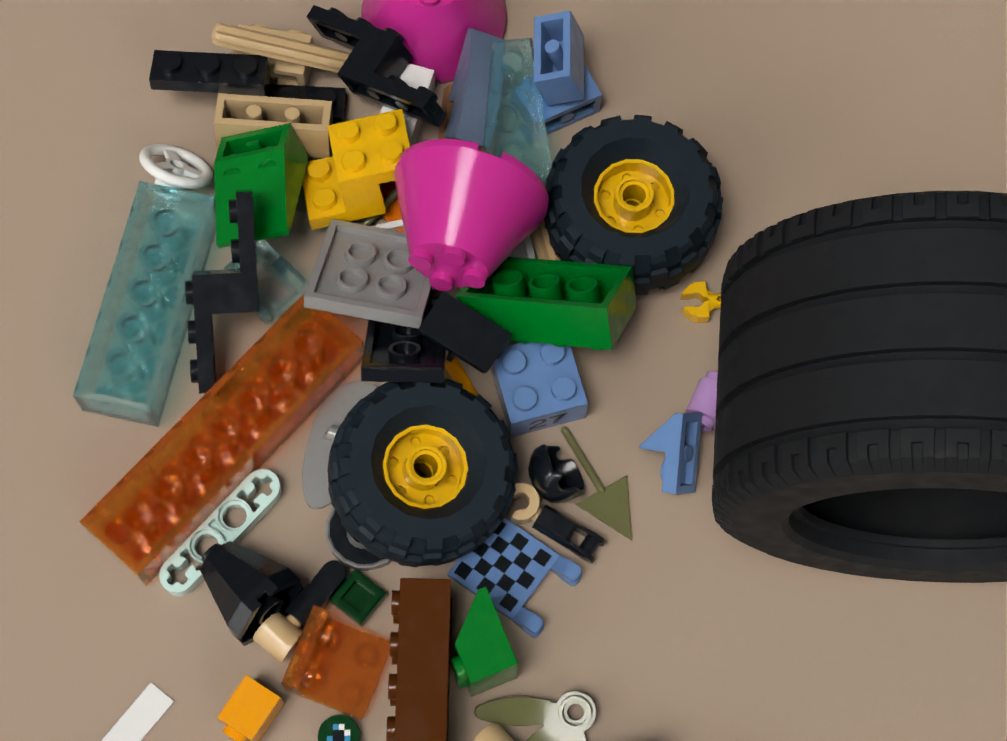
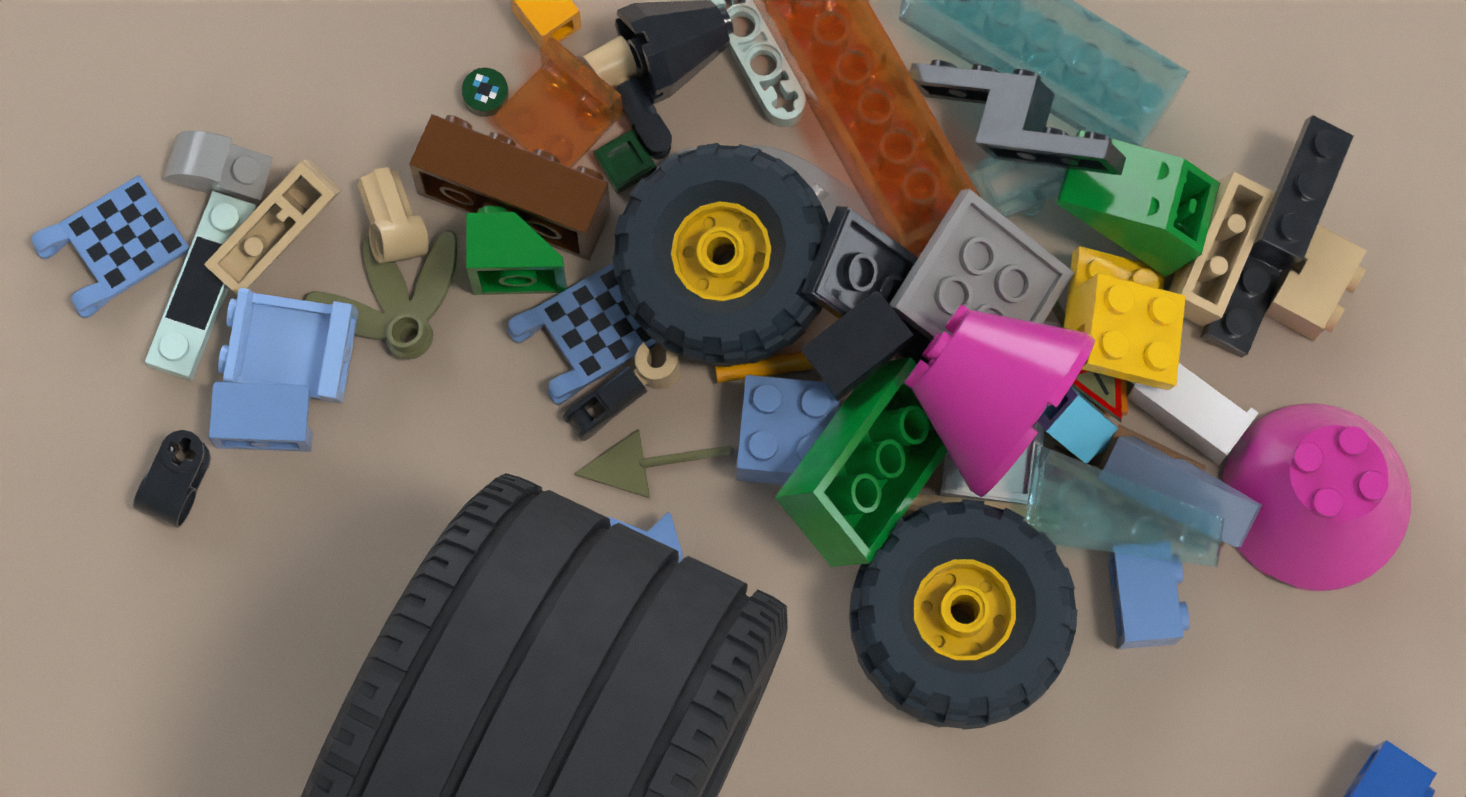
camera: 110 degrees right, 5 degrees up
(175, 172) = (1193, 120): white piece -> none
(278, 47) = (1297, 301): tan axle -> none
(376, 64) = (1252, 384): black bracket -> none
(554, 478) = (674, 411): black hair -> none
(558, 58) = (1180, 593): medium blue brick -> none
(710, 302) = (819, 682): yellow bar -> none

